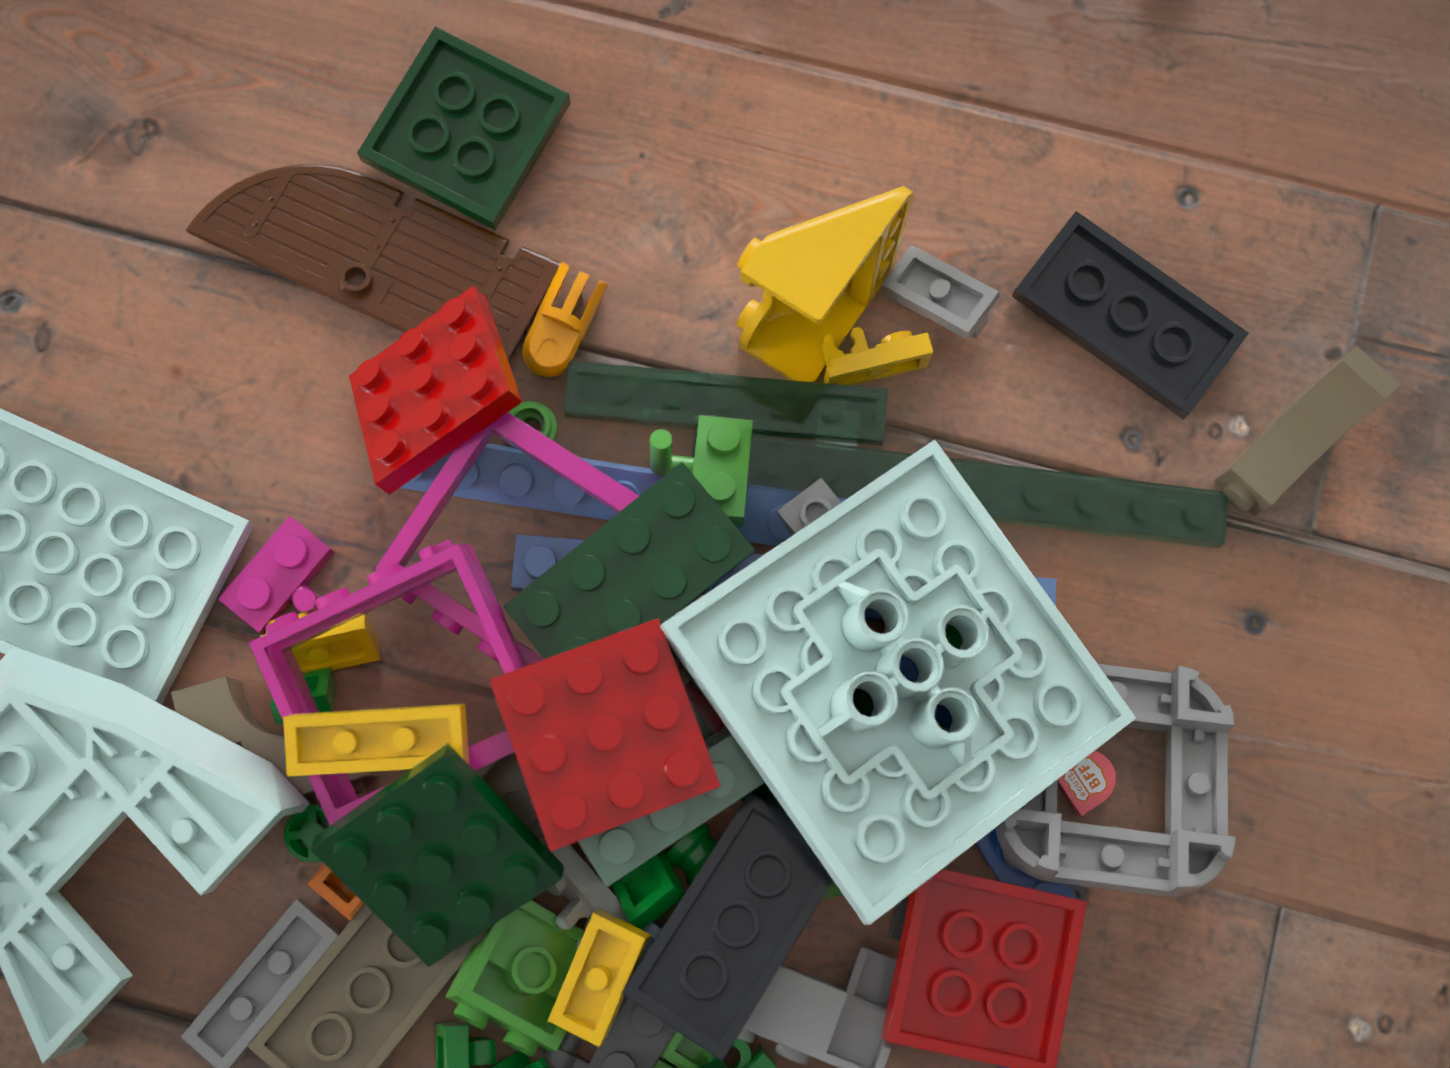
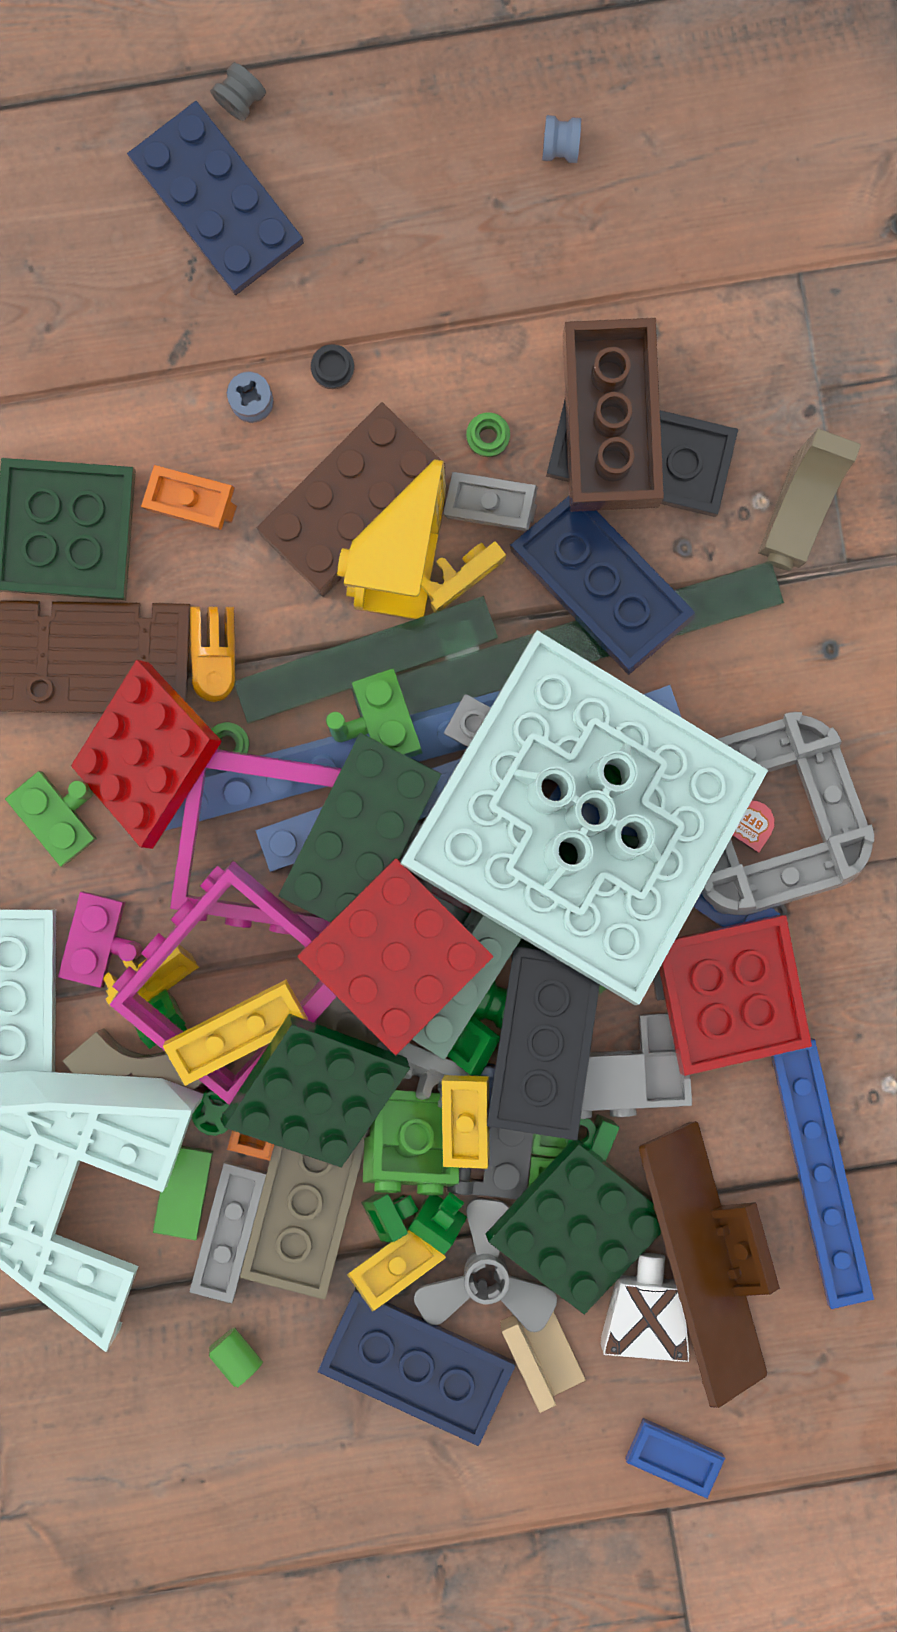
camera: 25 degrees left, 10 degrees up
(234, 914) = (184, 1197): none -> bright green tile
(303, 423) = (54, 816): none -> bright green plate
(614, 151) = (189, 498): none -> orange plate
(724, 220) = (345, 496): none -> reddish brown brick
(727, 92) = (257, 402): none -> sand blue wheel
(830, 86) = (332, 366): none -> black plate
(971, 212) = (488, 421): none -> bright green plate
(1029, 431) = (603, 583): none -> dark blue plate
(1118, 251) = (612, 414): none -> reddish brown brick

